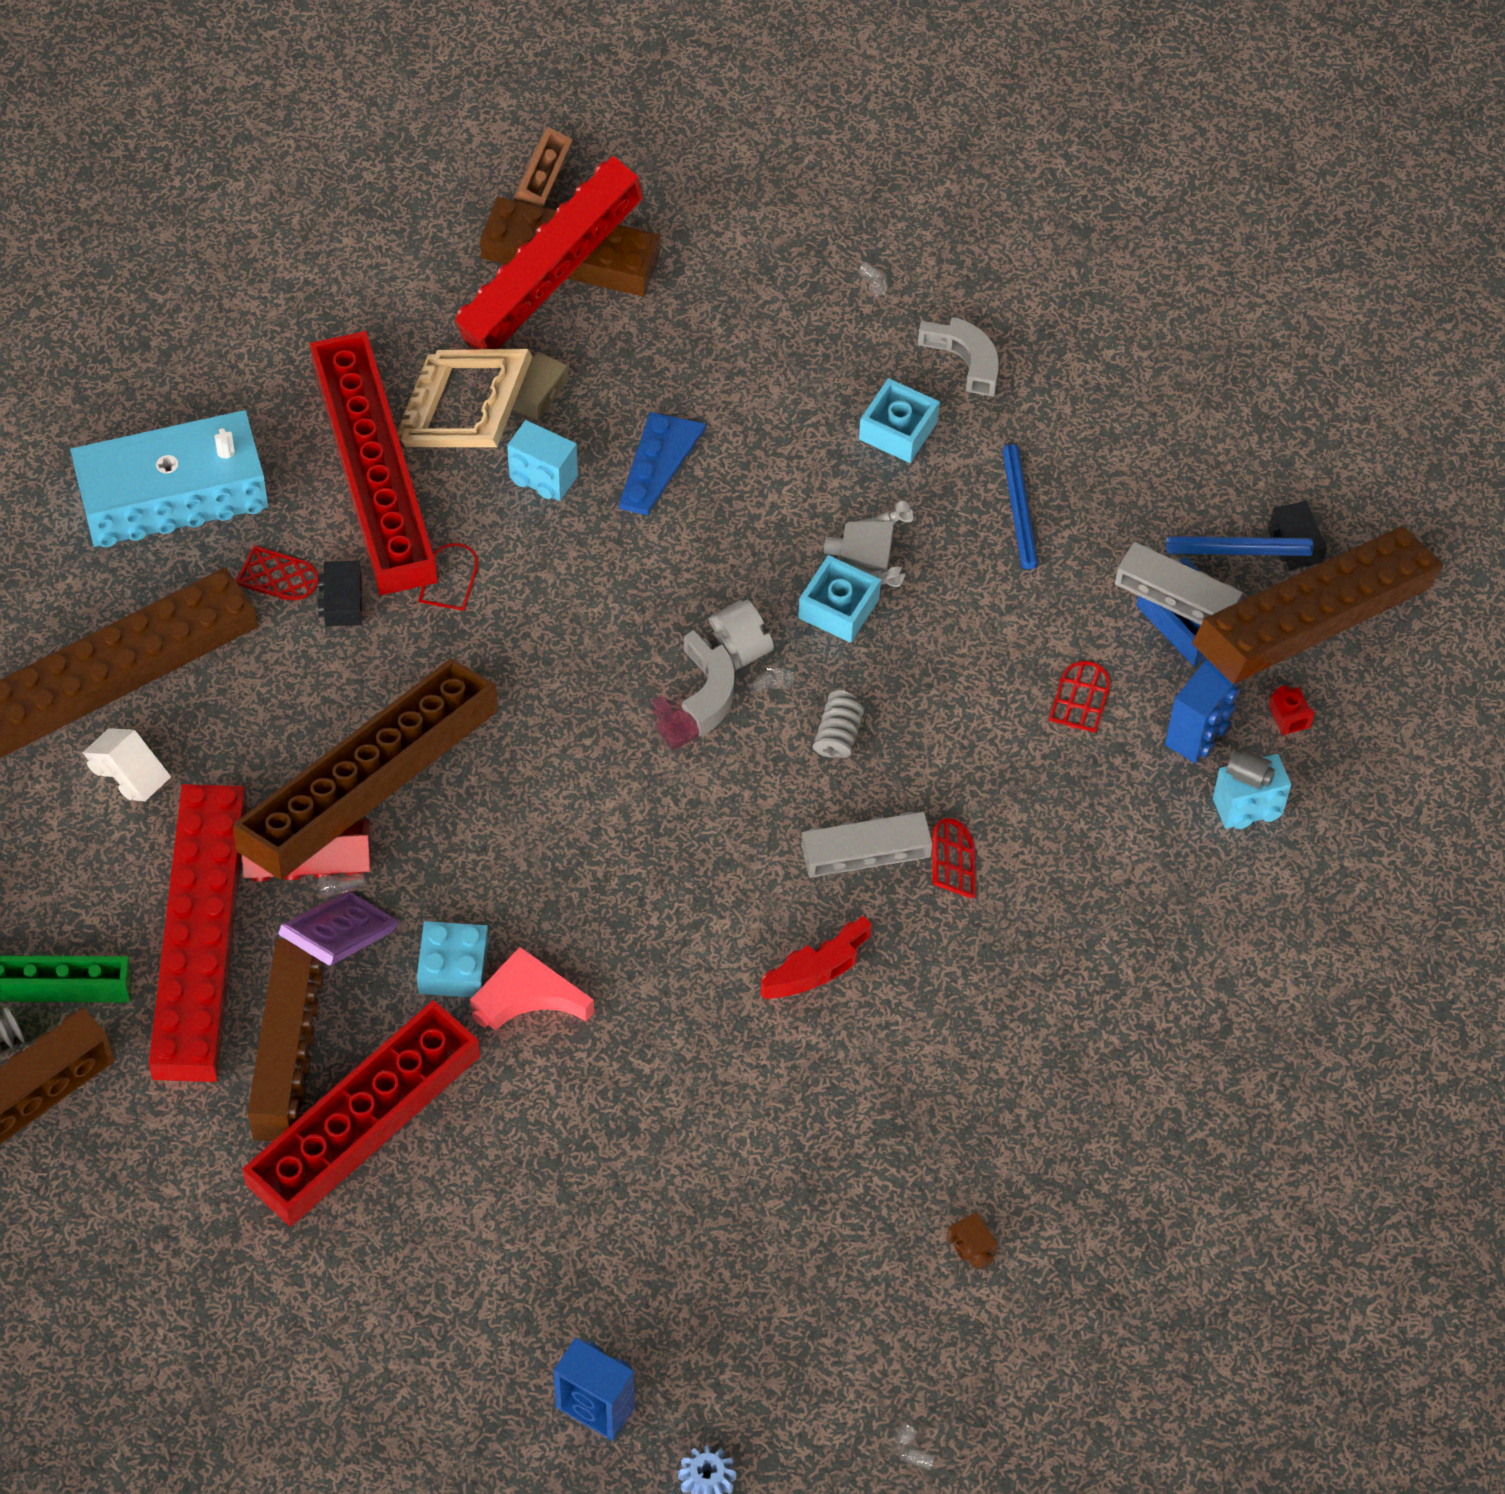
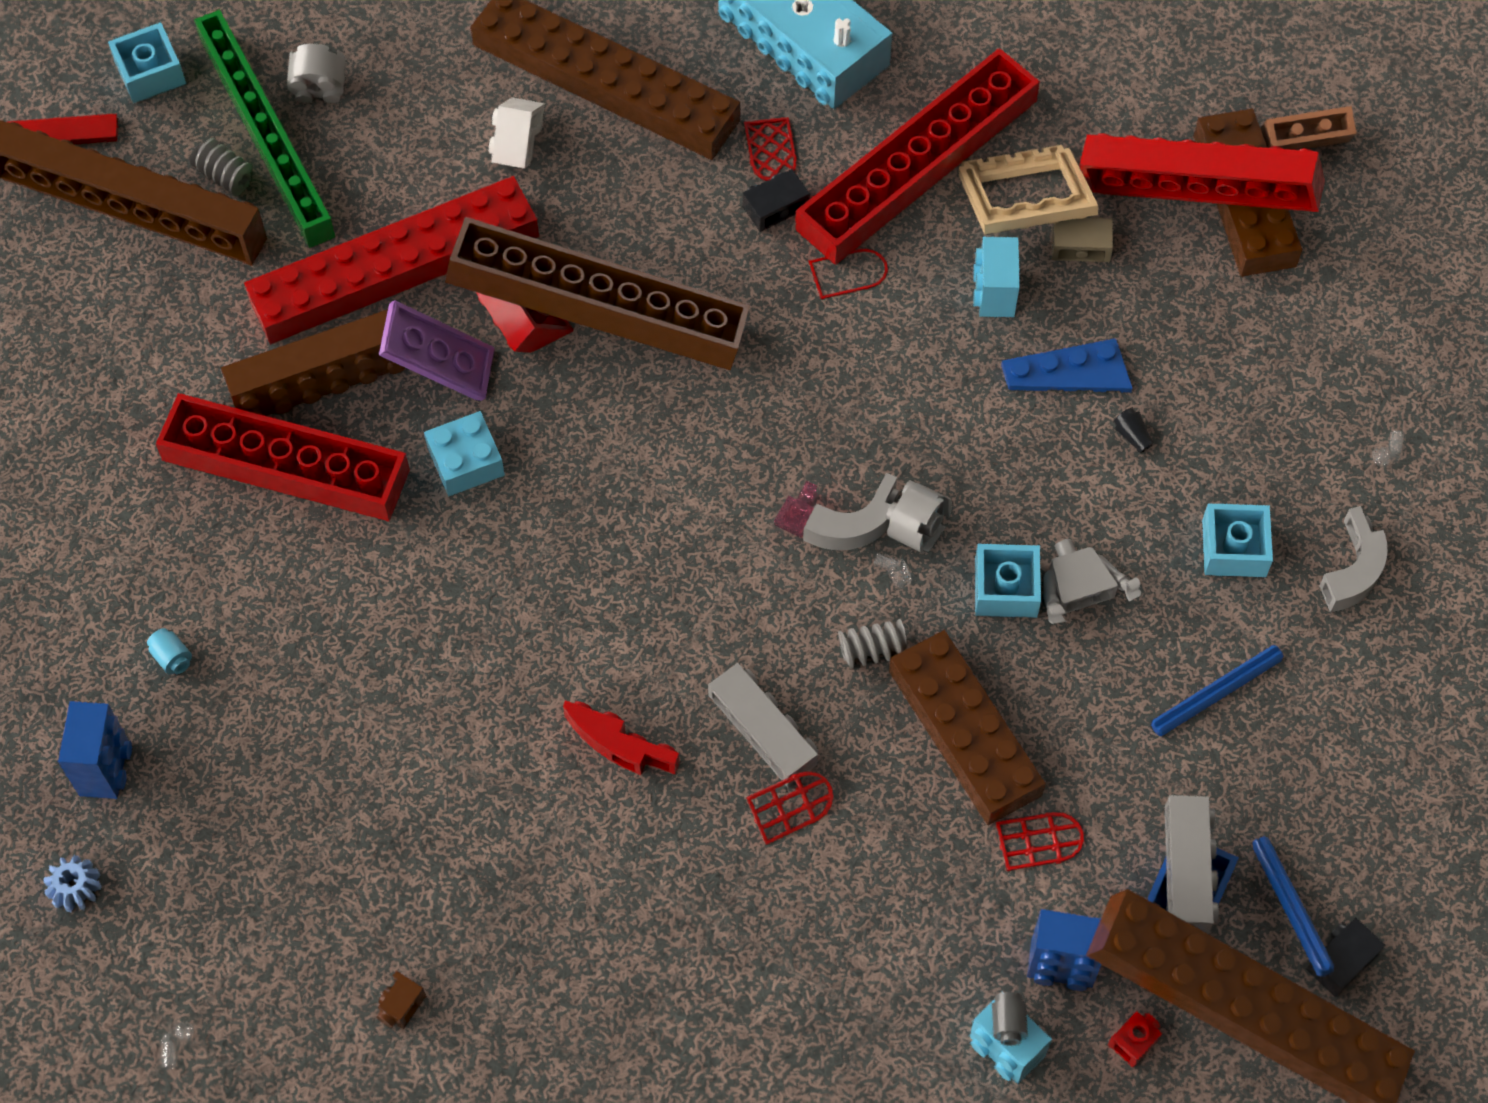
camera: 65 degrees right, 5 degrees up
(331, 887) = (487, 333): clear arm -> none
(510, 1298) = (169, 651): none -> medium azure brick
(526, 986) = (465, 516): coral arch -> none
(746, 442) = (1133, 429): none -> black cone
(955, 695) = (966, 727): none -> reddish brown brick

